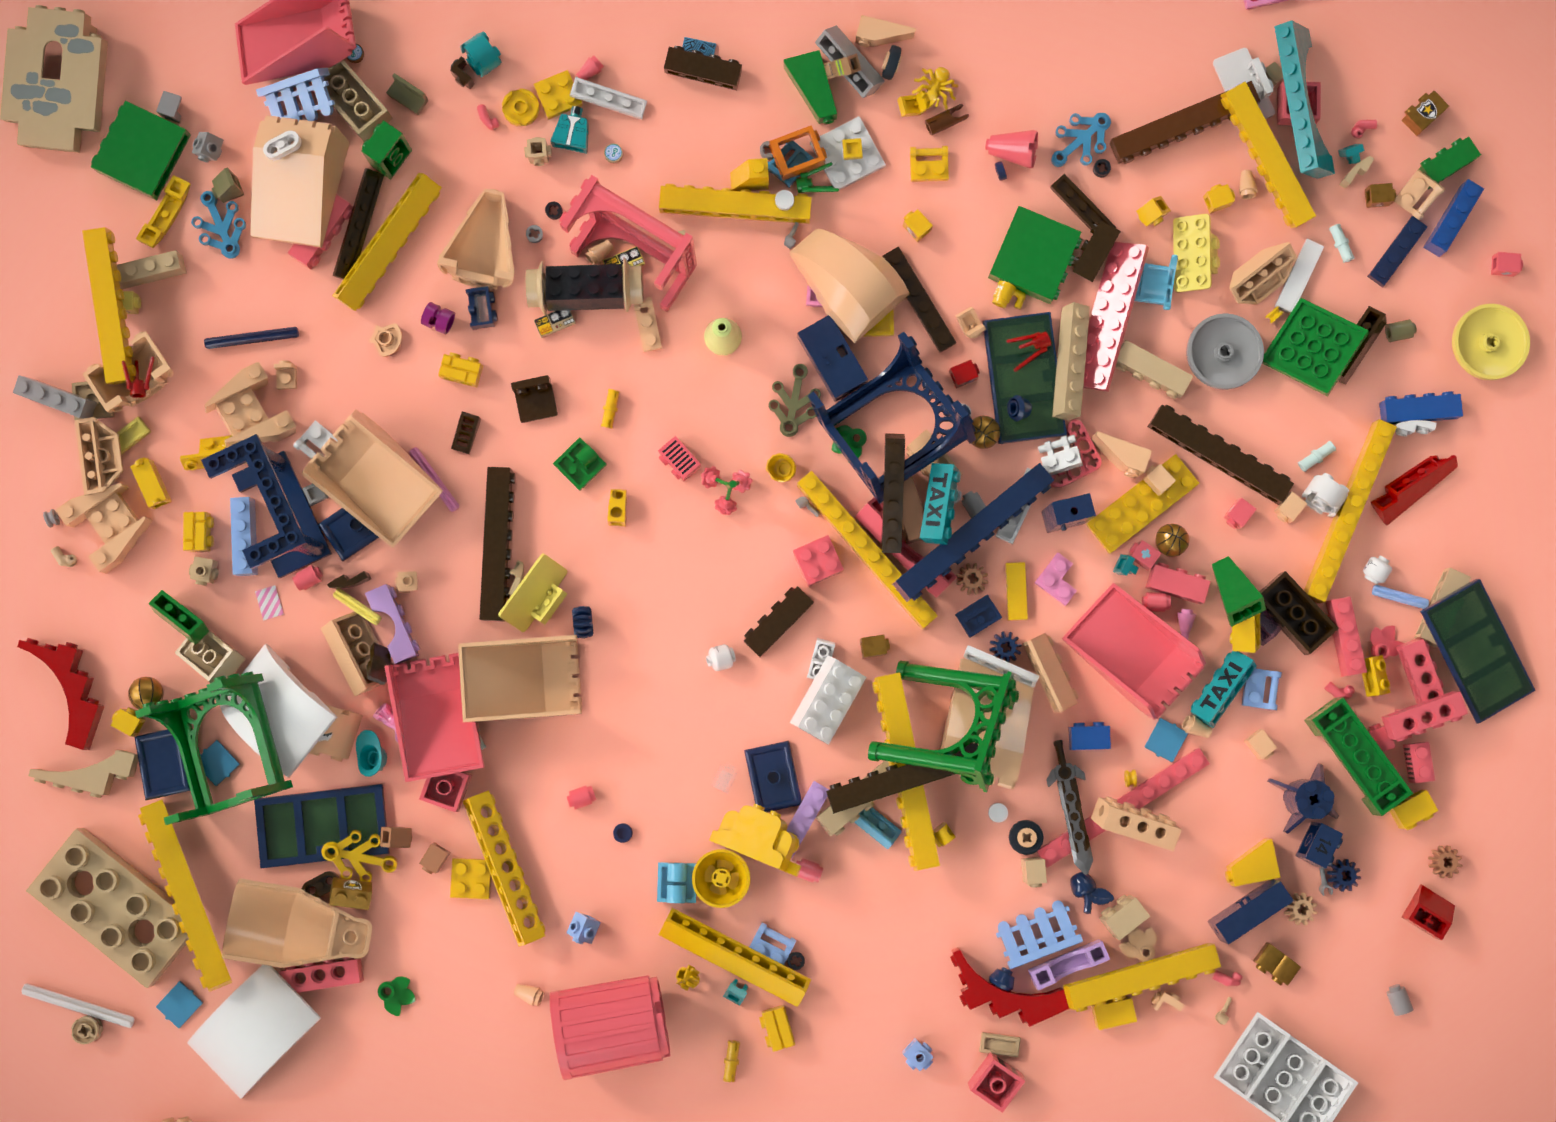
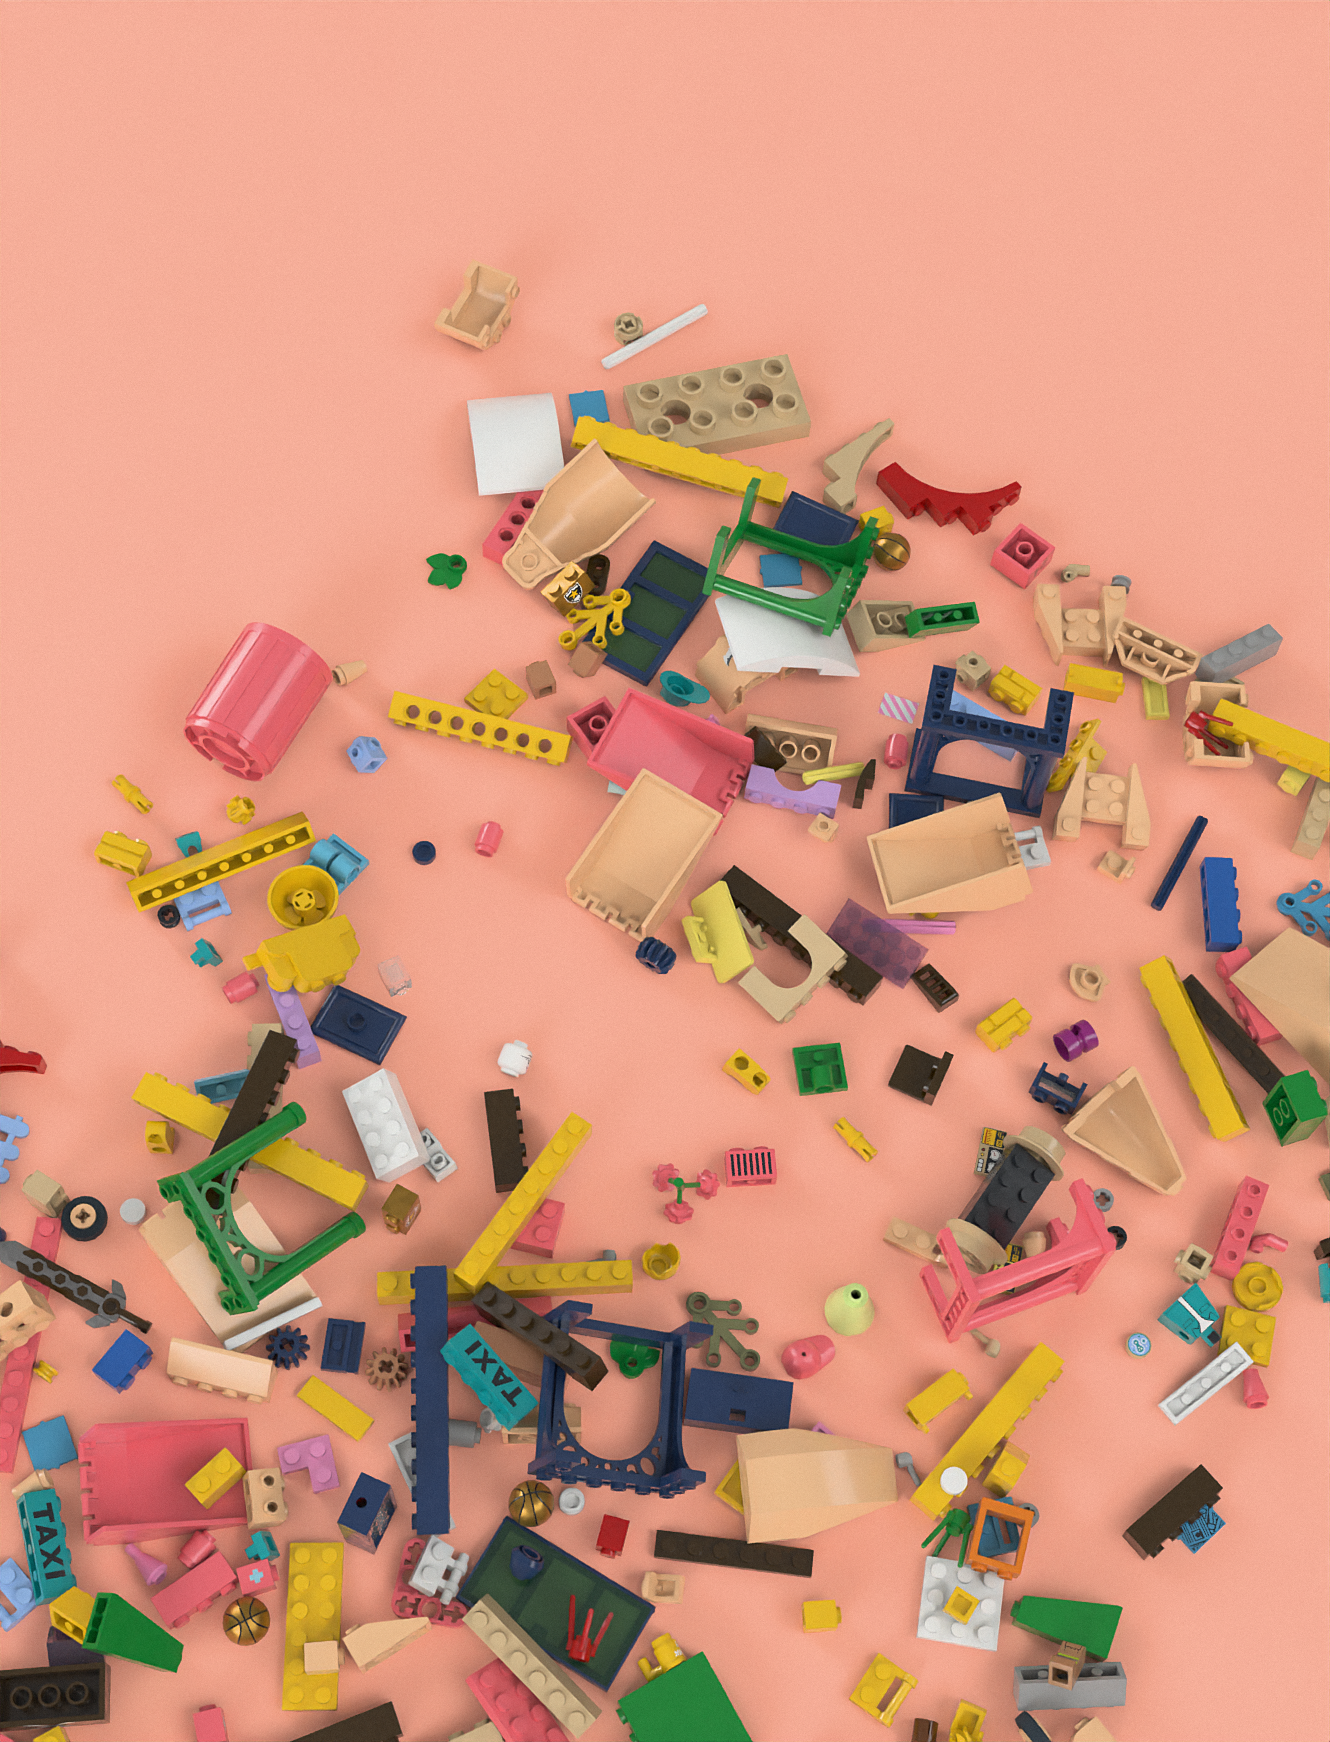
camera: 125 degrees right, 20 degrees down
(79, 599) = (1022, 556): none -> coral brick
(265, 291) = (1219, 904): none -> blue brick
(464, 489) = (877, 943): none -> plate
(491, 139) = (1238, 1228): none -> coral brick
(553, 520) = (825, 958): none -> tan arch
(739, 246) = (937, 1399): none -> yellow brick
(762, 339) = (818, 1352): none -> coral cap
(802, 912) = (205, 954): none -> teal tile
(816, 570) = (523, 1203): none -> yellow brick
(1099, 587) = (264, 1498): none -> light nougat brick
(1112, 623) = (216, 1478): none -> yellow brick

